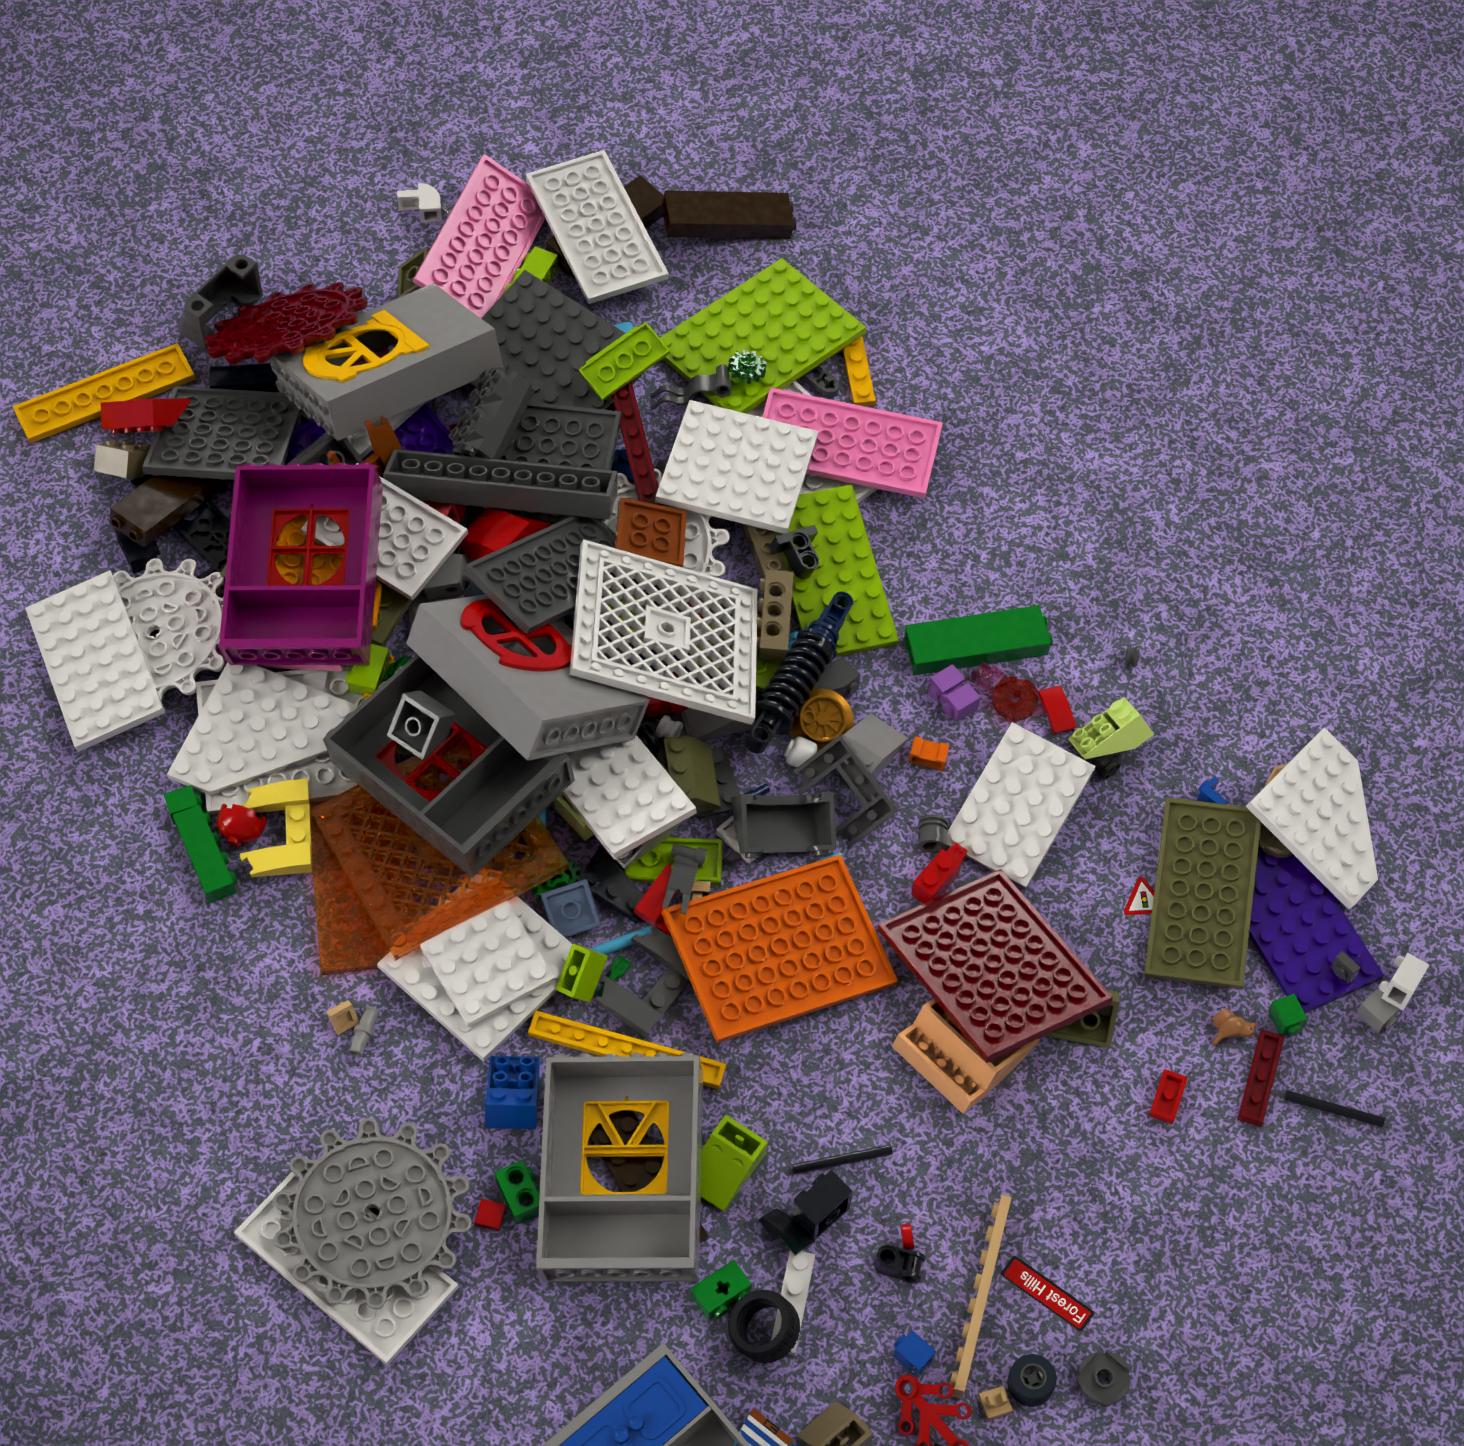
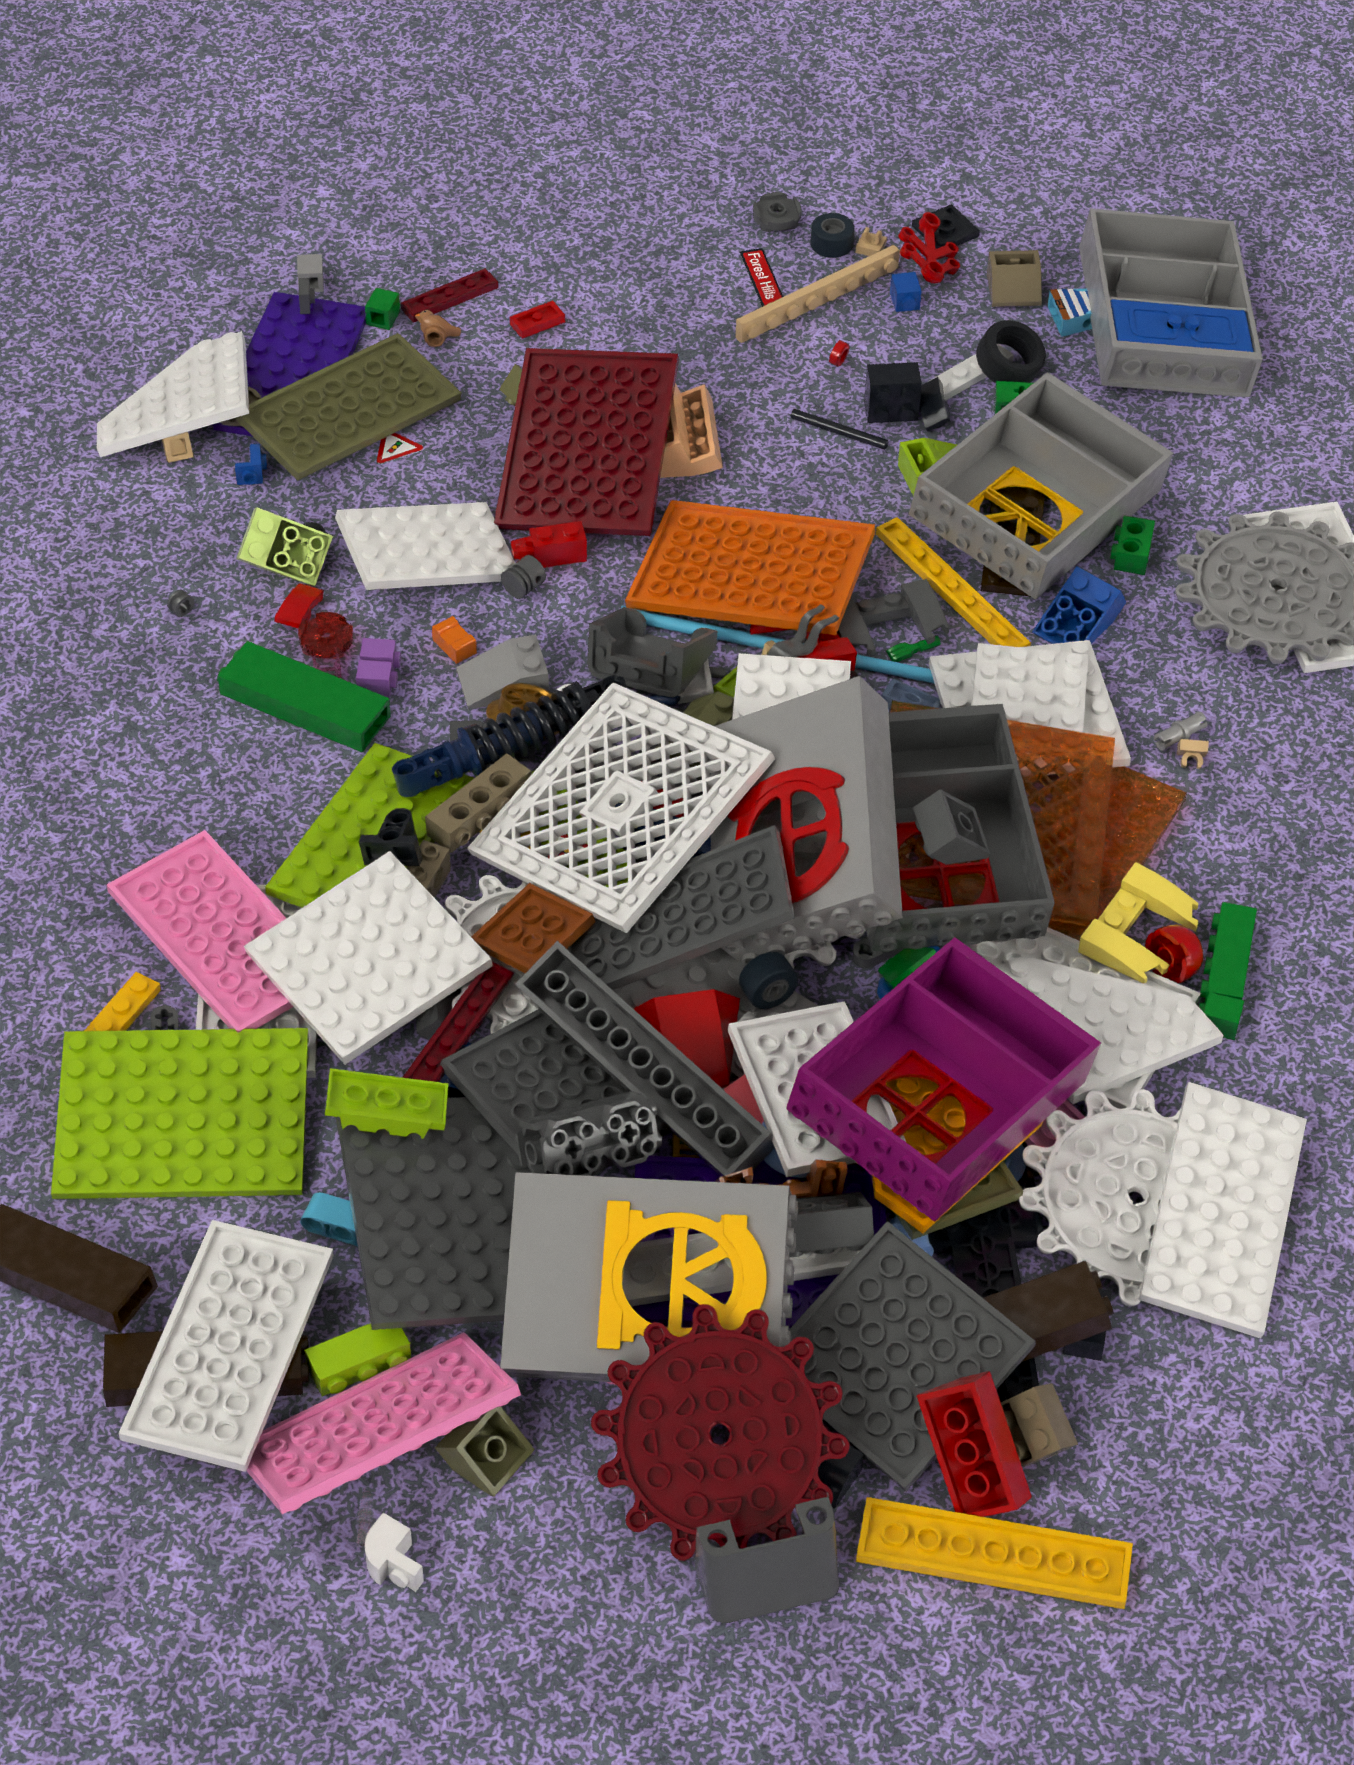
camera: 140 degrees left, 10 degrees down
(490, 1215) = (1168, 551): red tile -> none
(581, 972) = (946, 640): lime brick -> none
(700, 383) = (300, 1076): dark grey flag -> none
(747, 366) = (245, 1051): clear green gear -> none
(877, 803) = (549, 651): dark grey wedge -> none
(901, 1263) = (863, 343): black piece -> none
(1334, 1108) = (418, 250): black bar -> none
(1404, 981) = (269, 266): white brick -> none

